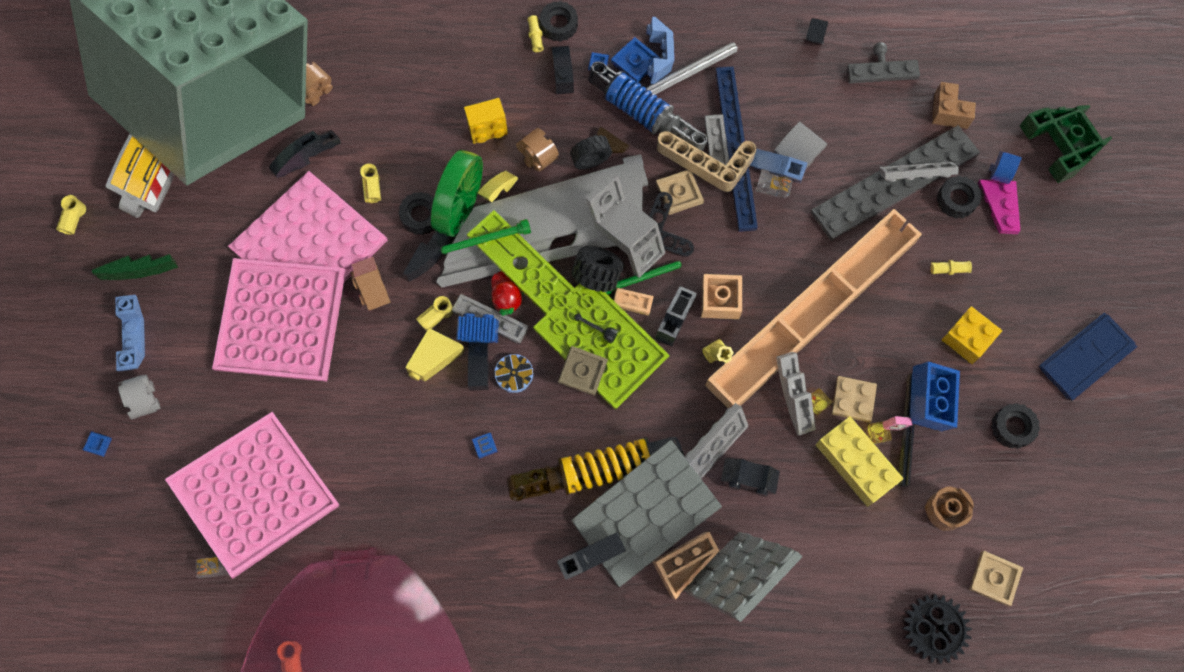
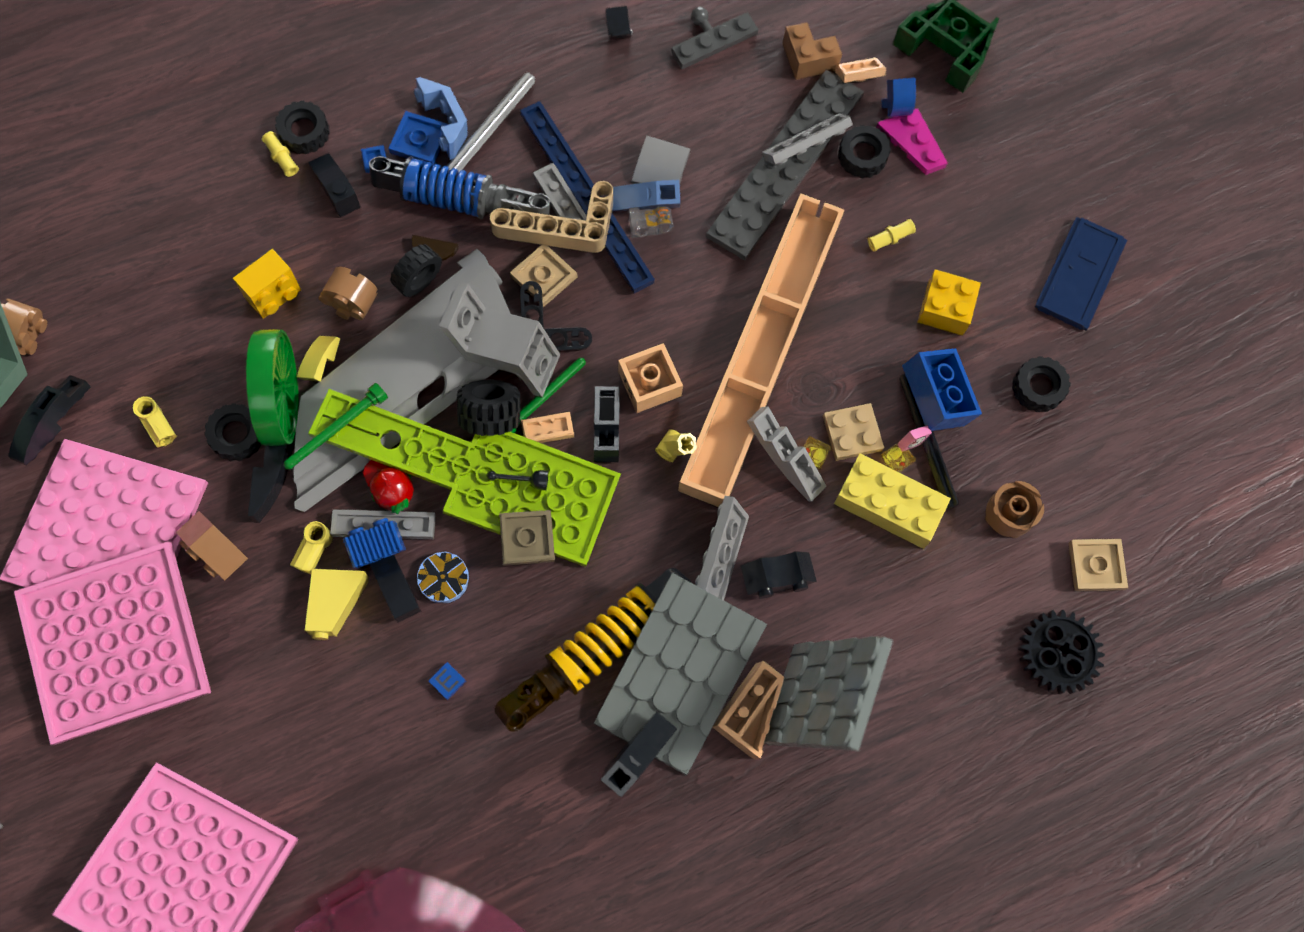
camera: 30 degrees left, 0 degrees up
(984, 135) = (860, 70): none -> light nougat plate

